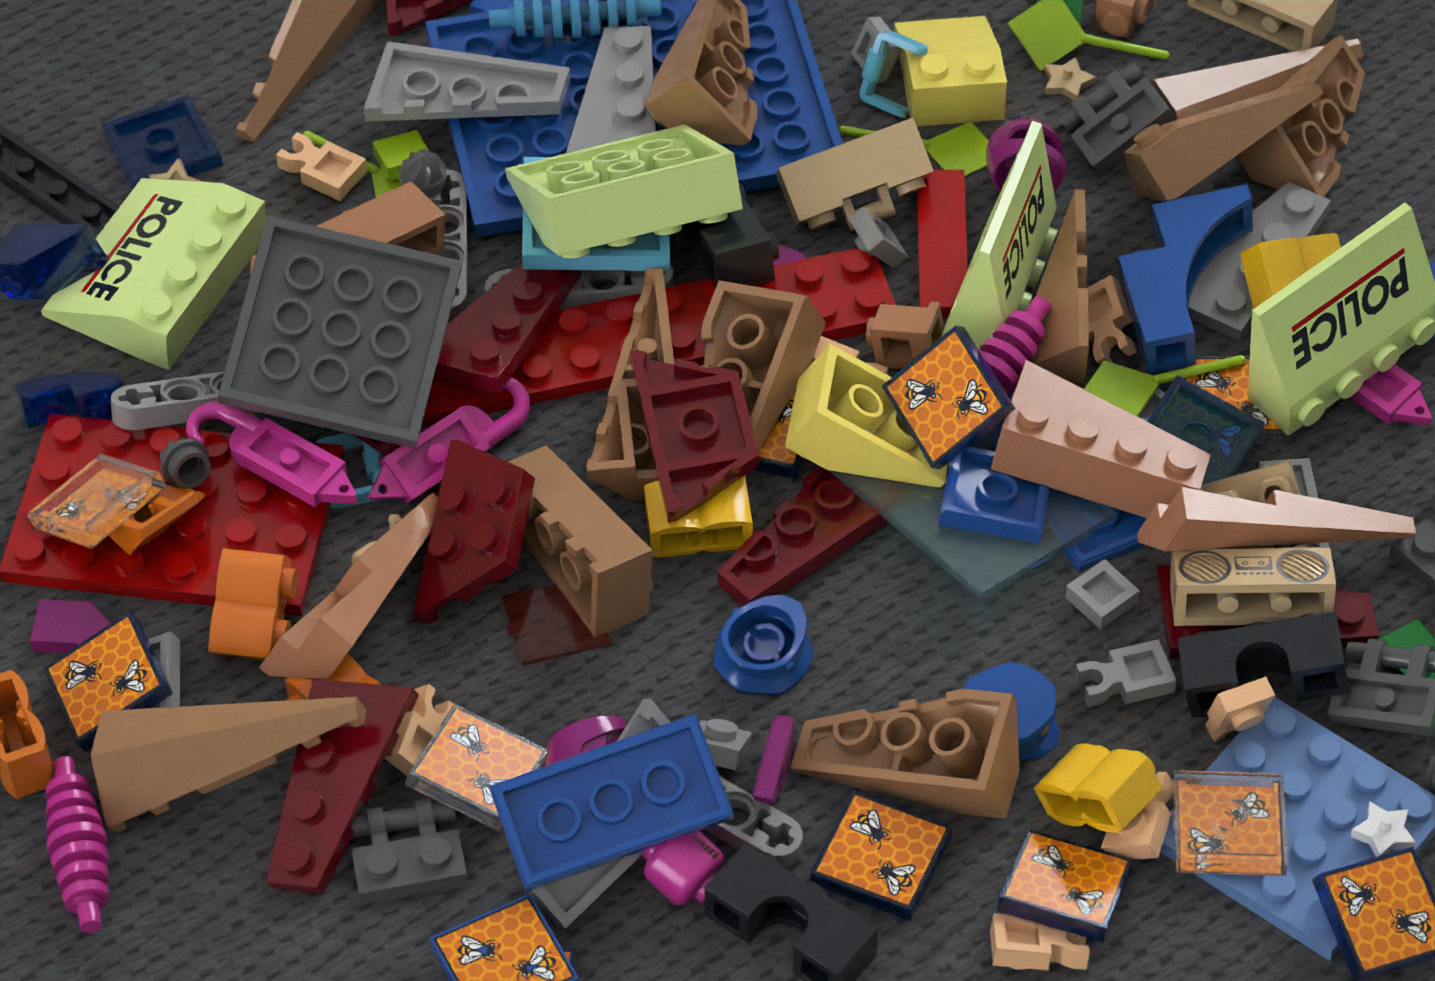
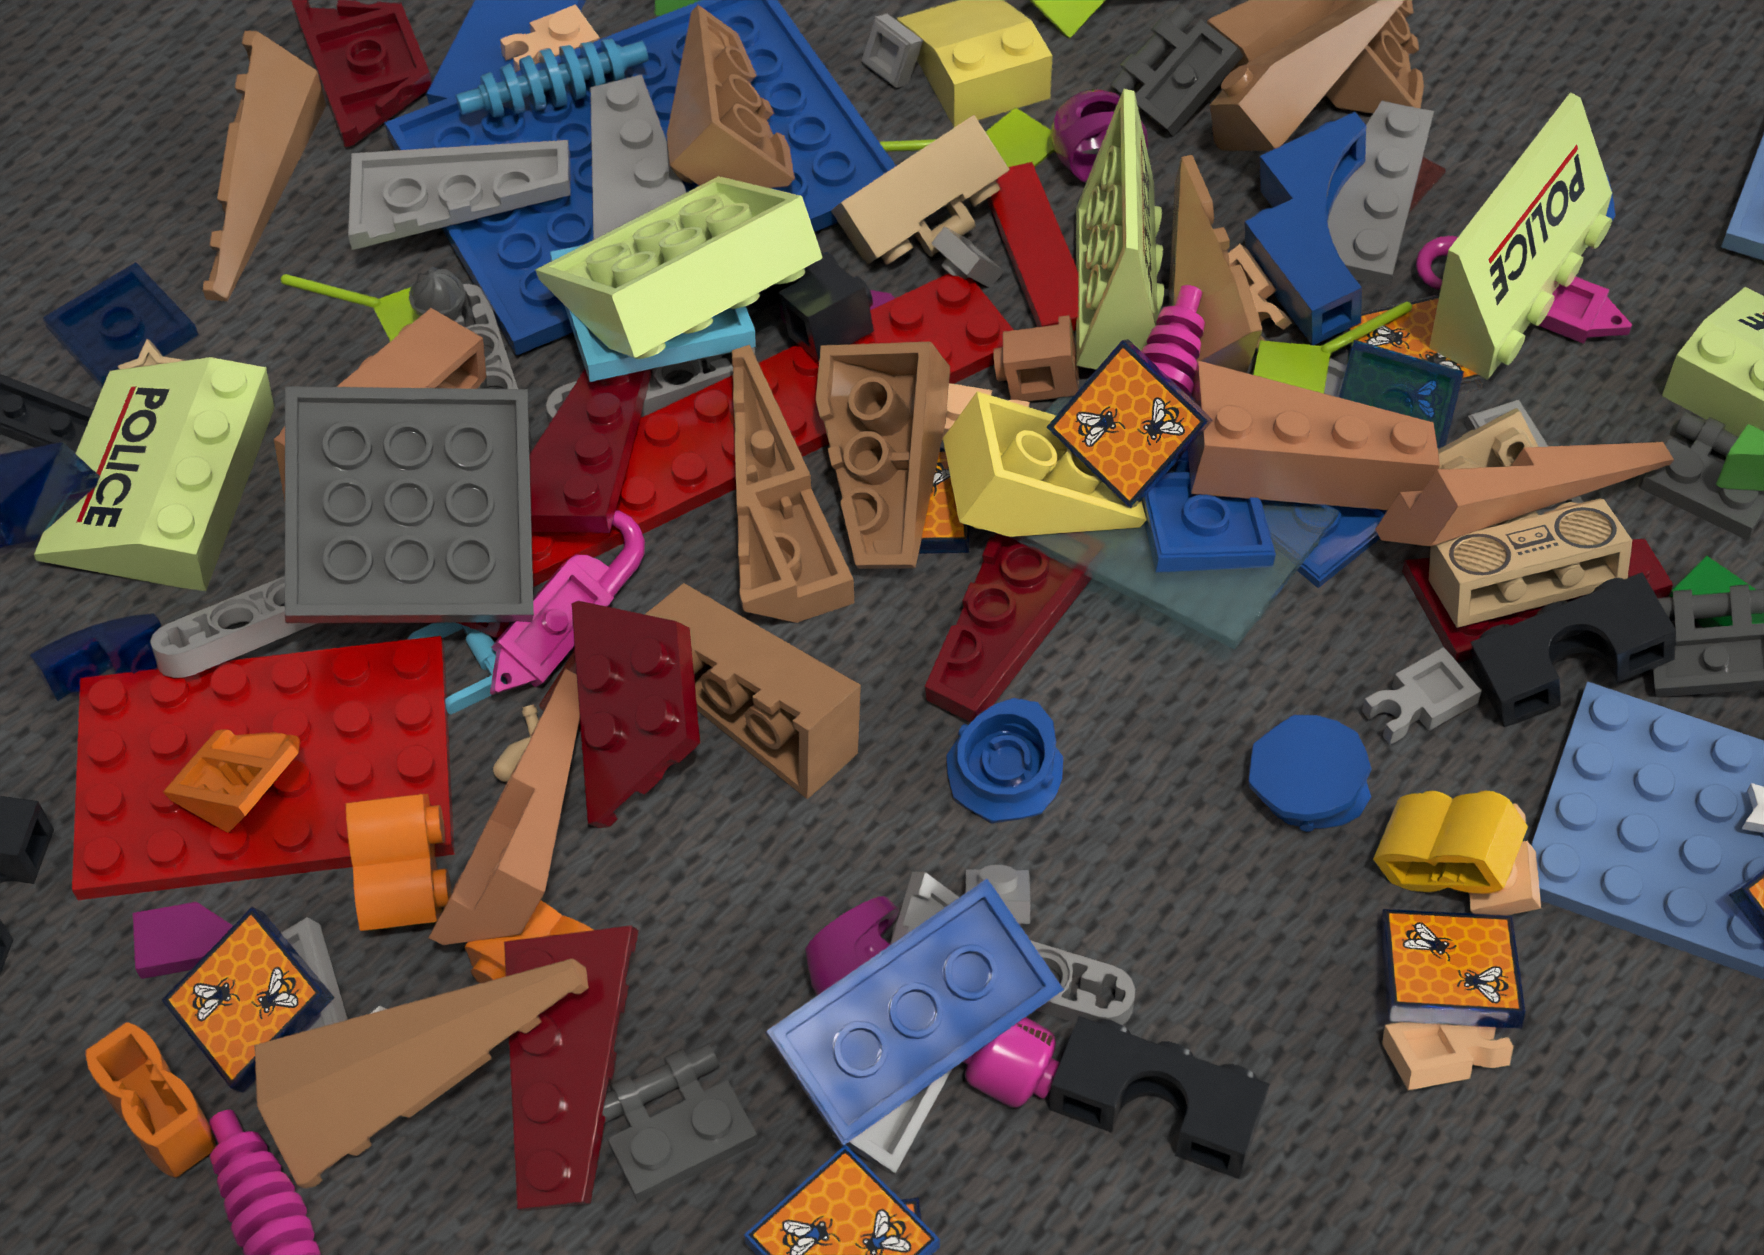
camera: 15 degrees left, 5 degrees up
(96, 500) = (171, 778): clear tile -> none
(185, 463) = (264, 704): dark grey plate -> none
(278, 455) = (373, 668): dark pink plate -> none
(324, 169) = (322, 314): light nougat plate -> none
(394, 149) = (395, 276): lime tile -> none
(417, 729) = (652, 980): light nougat plate -> none
(468, 758) = (725, 996): tile -> none
(547, 625) = (746, 796): clear red piece -> none
(694, 429) = (850, 525): dark red wing -> none
(714, 526) = (879, 621): yellow brick -> none
(775, 760) = (1071, 902): magenta tile -> none
(874, 65) = (898, 69): medium azure piece -> none
(881, 855) = (1227, 983): tile -> none
(934, 753) = (1248, 845): medium nougat wedge -> none
(1067, 79) = (1102, 41): tan piece -> none
(1102, 594) = (1359, 608): light grey plate -> none
(1230, 823) = (1609, 847): clear tile -> none
(1239, 708) = (1574, 710): light nougat plate -> none
(1279, 262) = (1431, 198): yellow brick -> none

